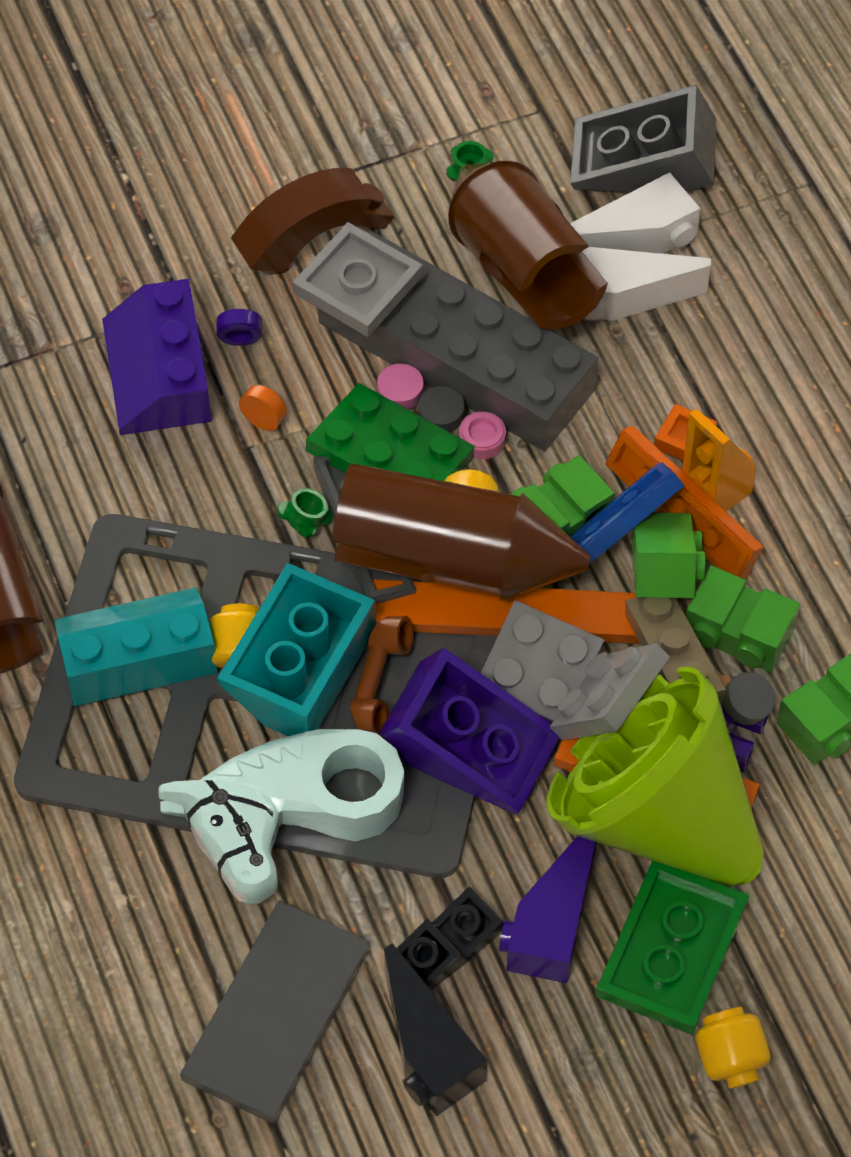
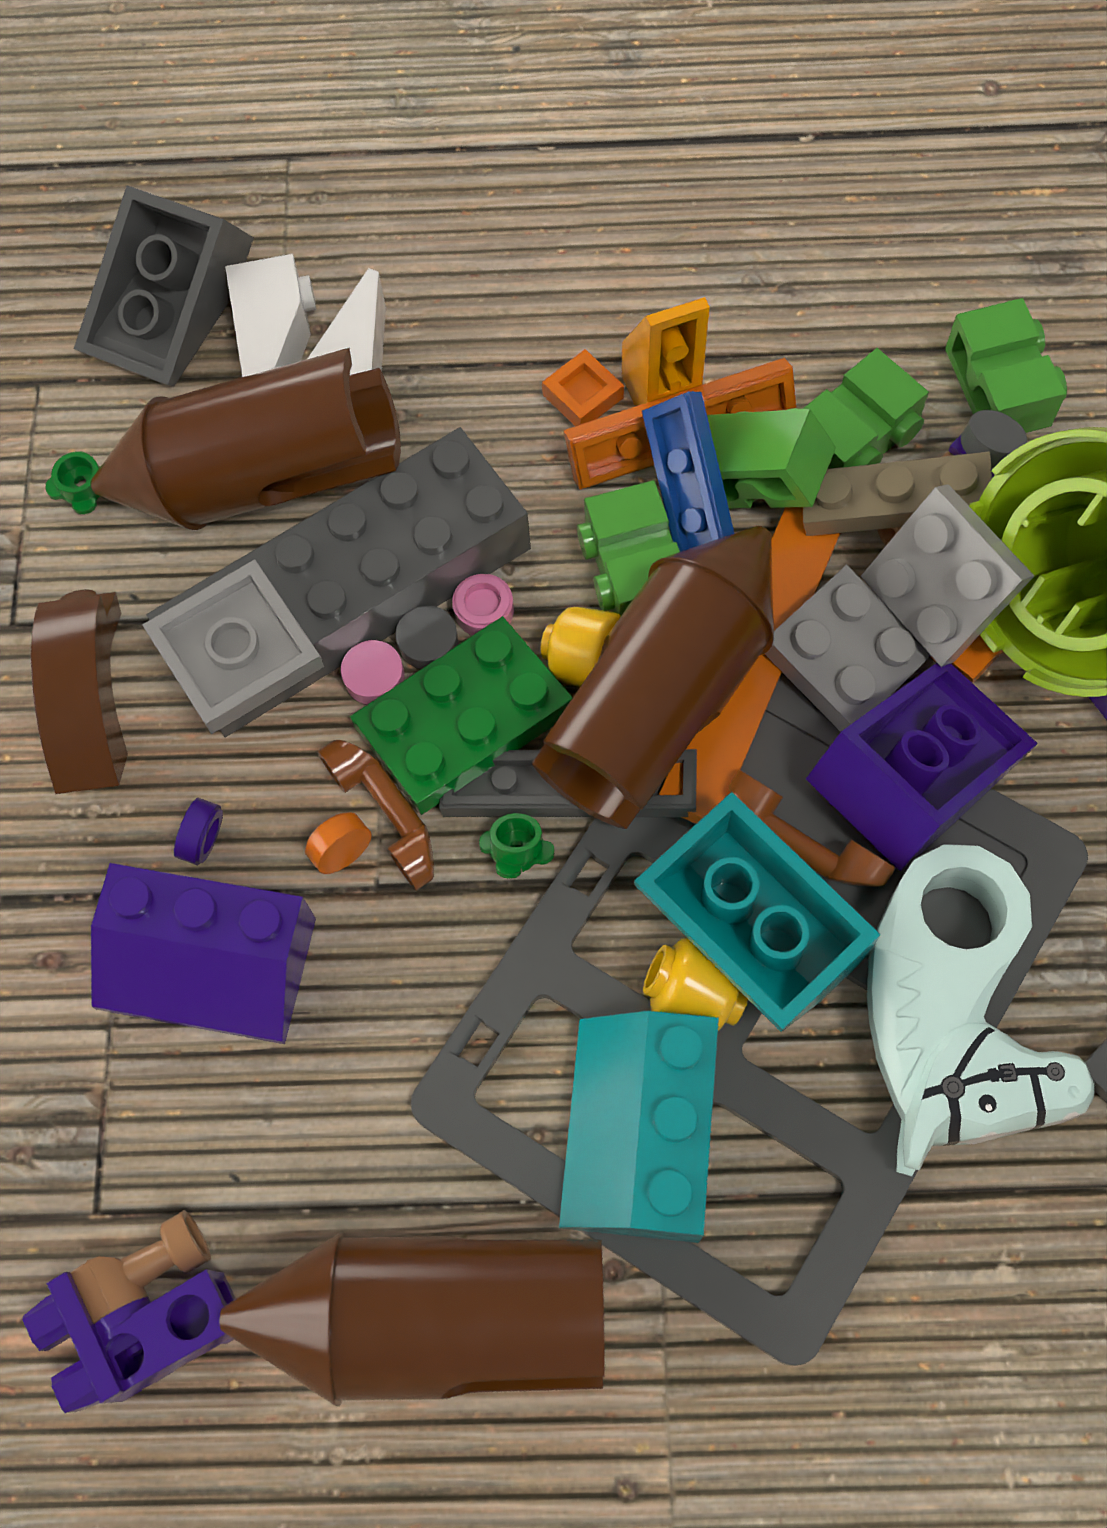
camera: 65 degrees left, 10 degrees up
(274, 456) = (351, 766): none -> dark orange bar

